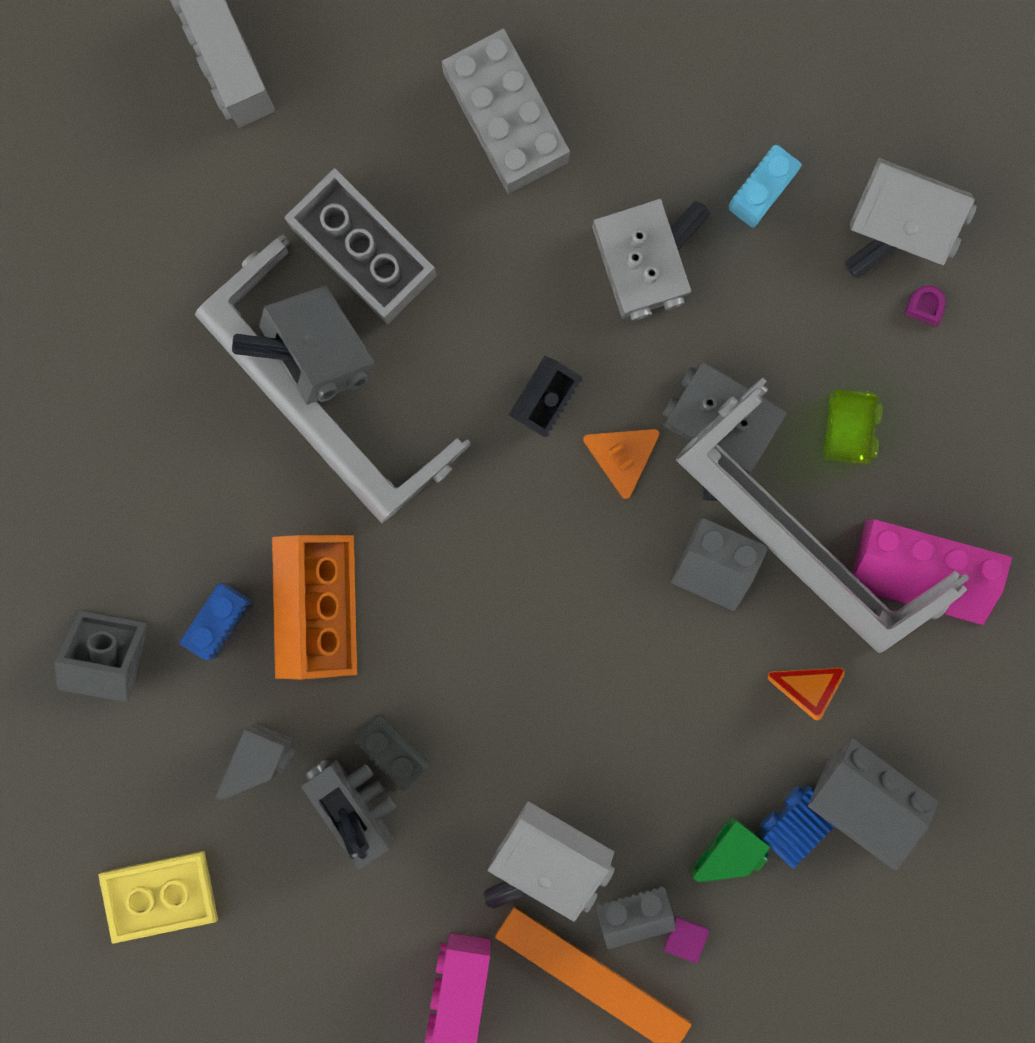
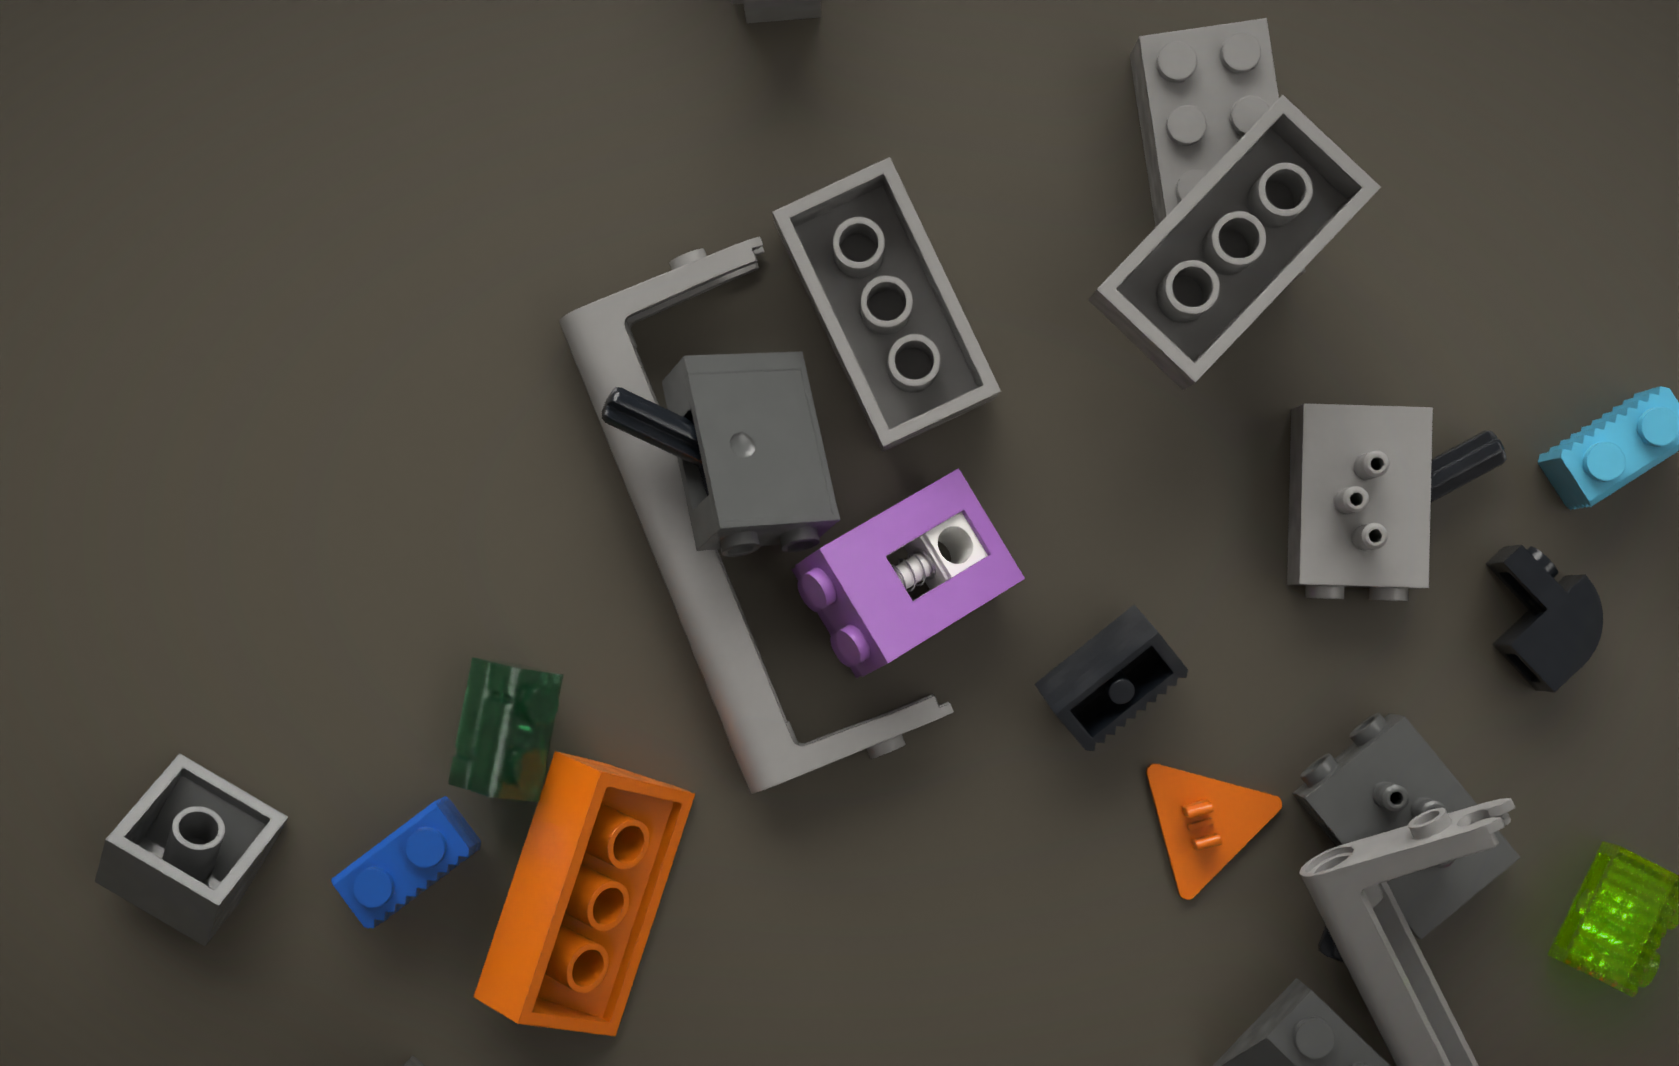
camera: 25 degrees right, 0 degrees up
(242, 534) = (505, 730): none -> clear green brick
(401, 398) = (868, 600): none -> medium lavender brick
(523, 147) = (1234, 243): none -> light grey brick
(767, 286) = (1561, 621): none -> black brick

